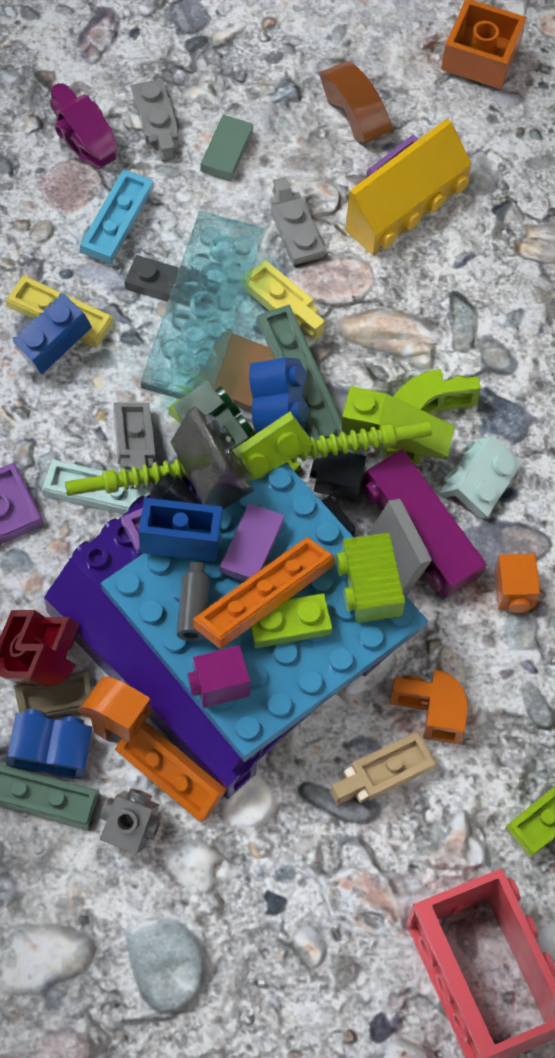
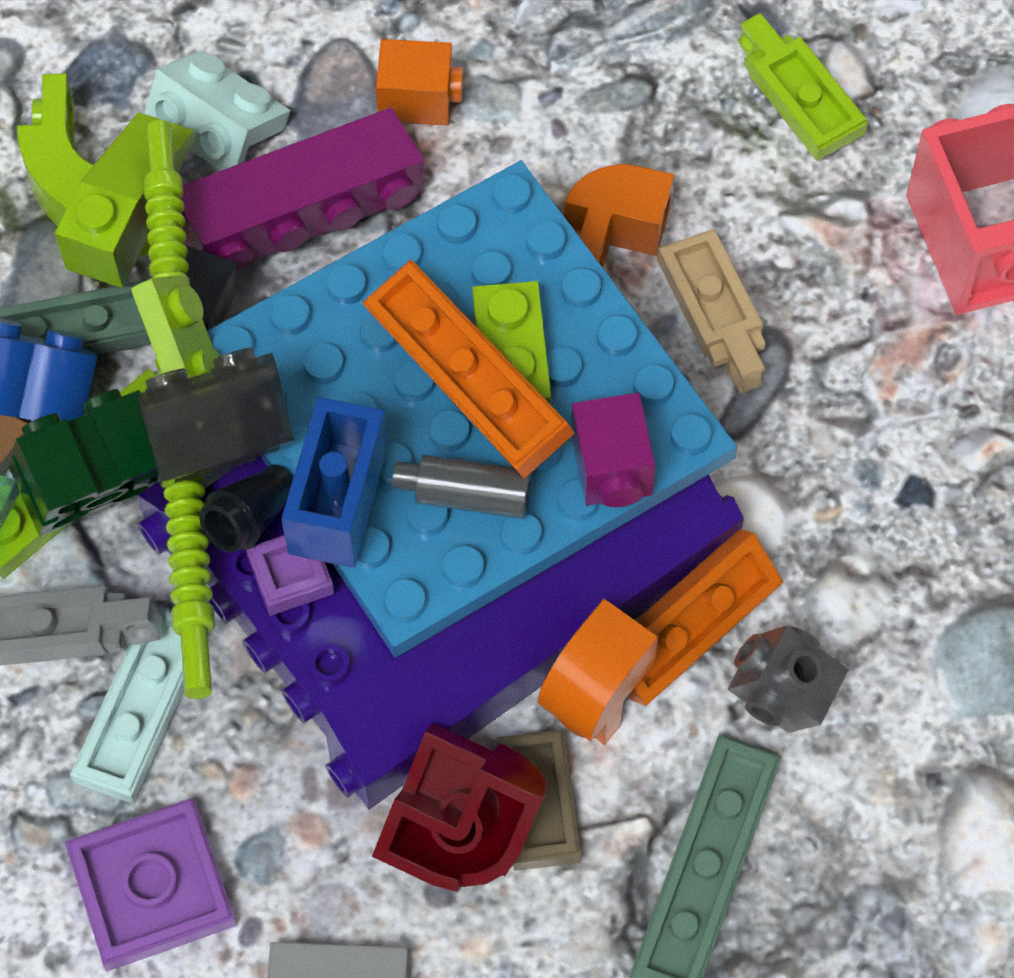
camera: 80 degrees left, 0 degrees up
(49, 744) = (636, 804): blue brick -> none
(252, 542) = (352, 376): medium lavender tile -> none
(372, 578) = (454, 211): lime brick -> none
(407, 544) = (341, 215): light grey tile -> none

